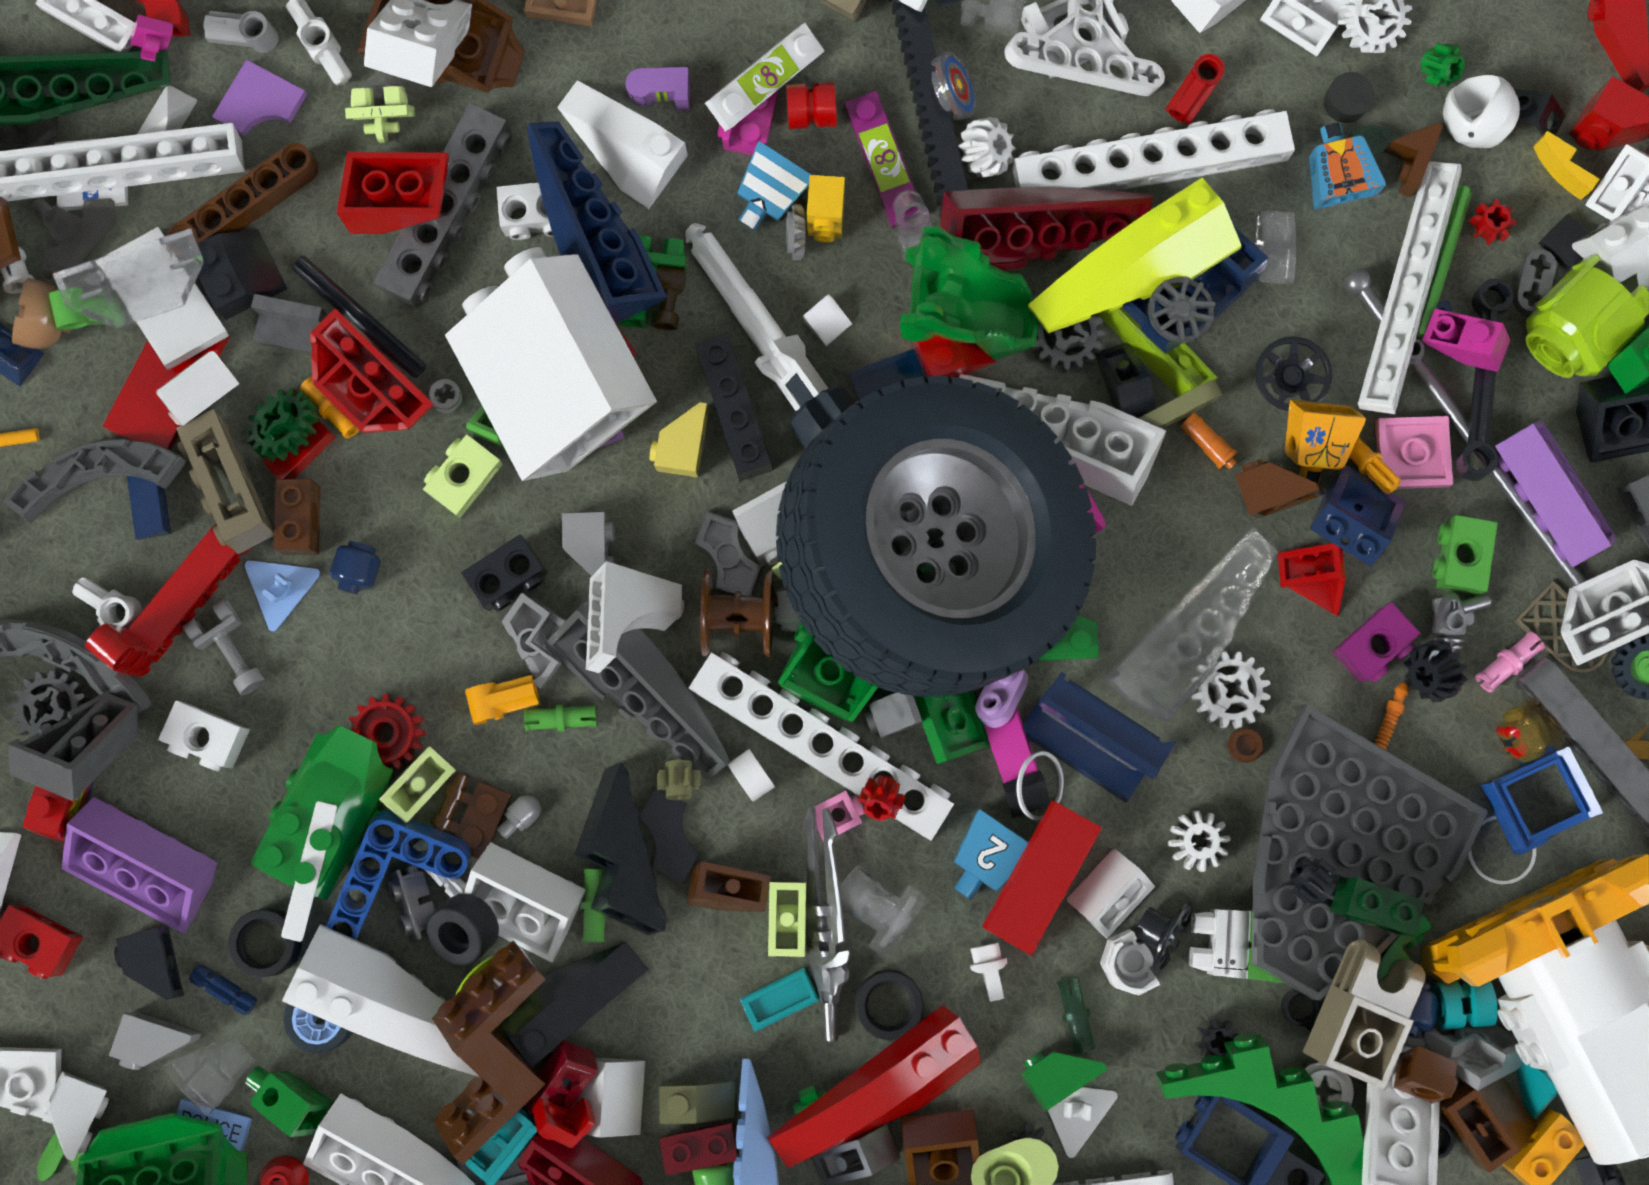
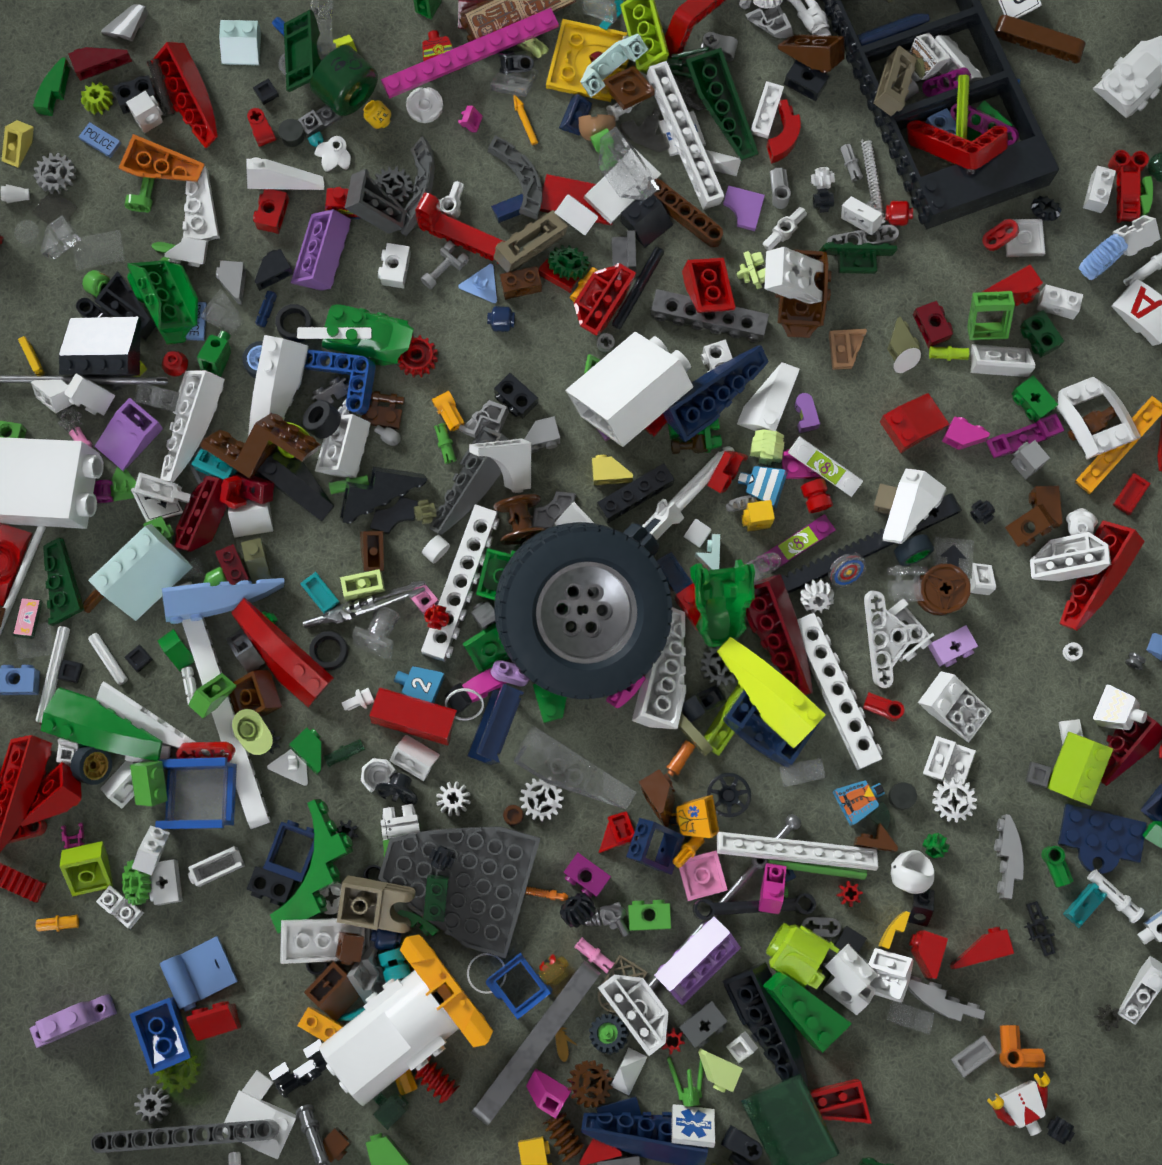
camera: 70 degrees right, 5 degrees down
(151, 35) = (763, 143): dark pink tile -> none
(417, 784) = (391, 376): yellowish green slope -> none
(460, 496) = (569, 370): yellowish green brick -> none
(705, 165) = (767, 446): none -> yellowish green hair
(732, 243) = (726, 470): none -> red slope
(883, 306) = (712, 559): none -> light aqua slope
(1181, 309) = (747, 720): dark grey wheel -> none

